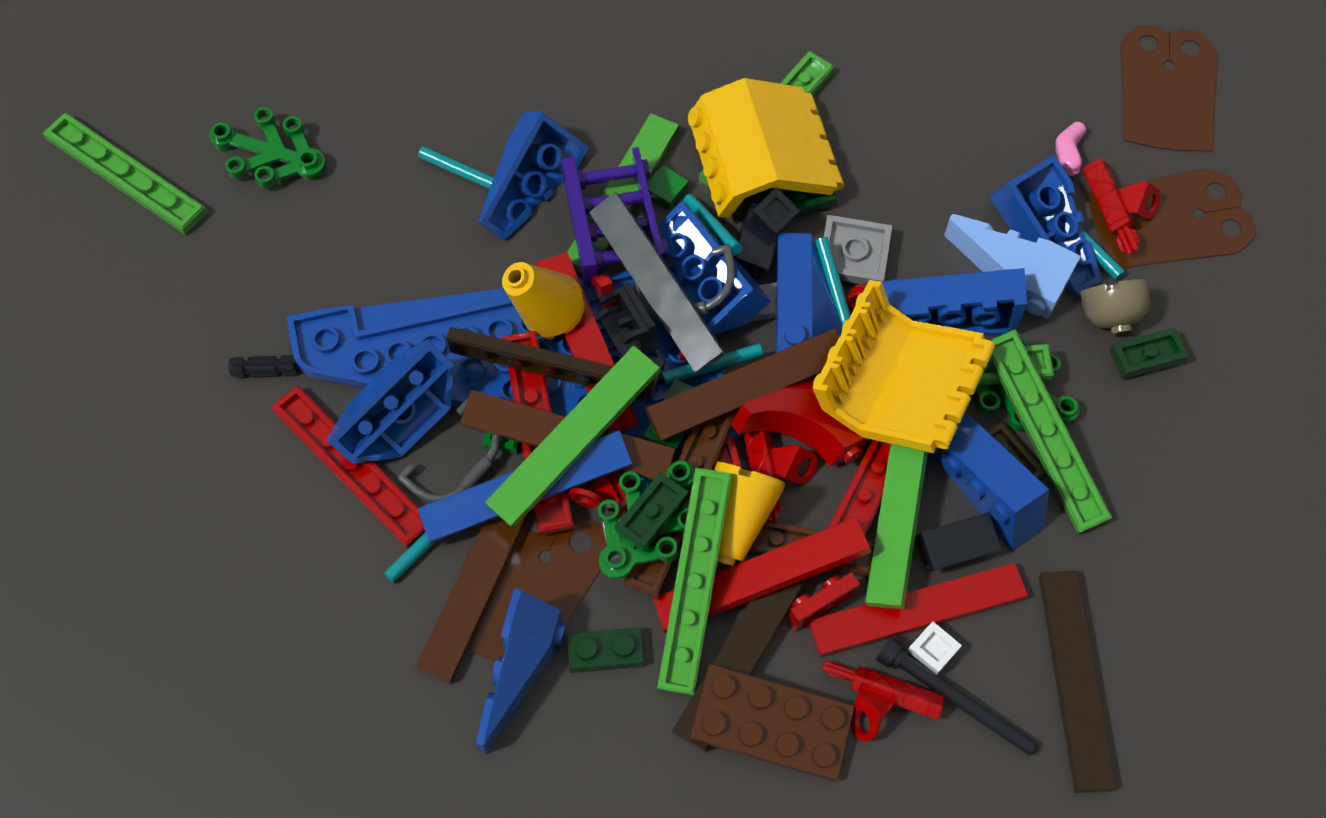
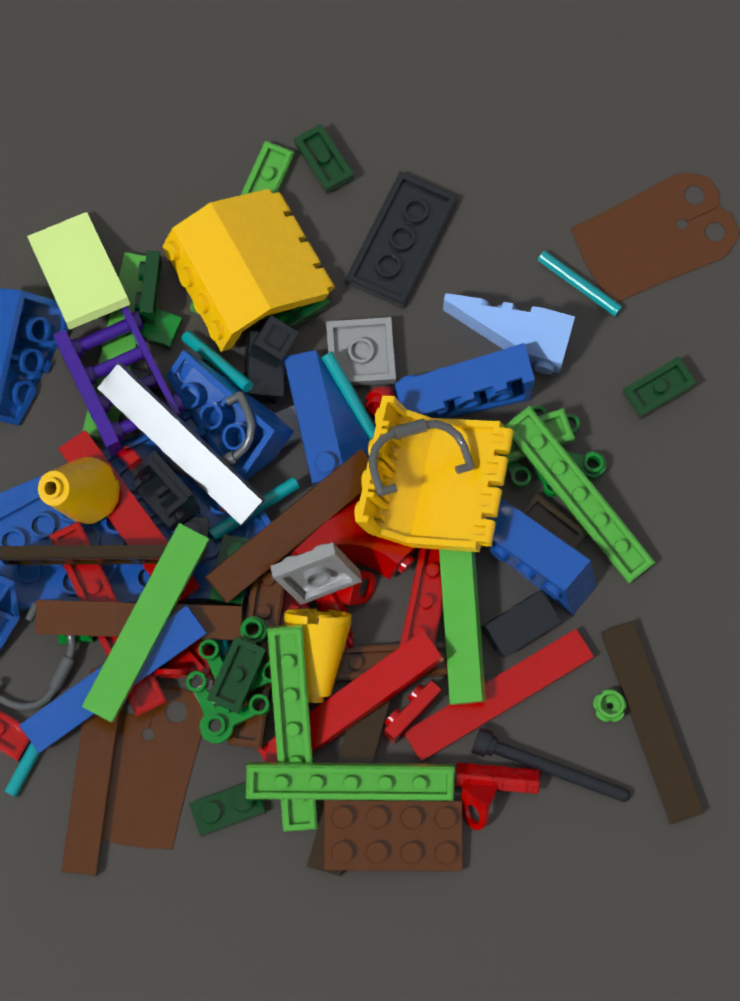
camera: 15 degrees left, 10 degrees up
(529, 644) = (158, 823): blue wedge -> none
(602, 115) = (78, 270): none -> yellowish green tile
(669, 136) = (150, 274): none -> dark green plate
(741, 652) = (349, 781): none -> bright green tile
(759, 432) = (316, 573): none -> light grey plate
(860, 77) = (323, 158): none -> dark green plate
(894, 316) = (410, 429): none -> dark grey piece
(918, 164) = (401, 240): none -> black tile
(934, 648) = (521, 728): white plate -> none
(1037, 641) = (619, 705): none -> bright green plate
(1043, 207) = (535, 270): blue wedge -> none
(1067, 150) = (541, 186): bright pink arm -> none
(1117, 305) = (620, 348): dark tan cylinder -> none
(1120, 204) = (604, 236): red piece -> none
(1167, 105) = (633, 109): reddish brown piece -> none

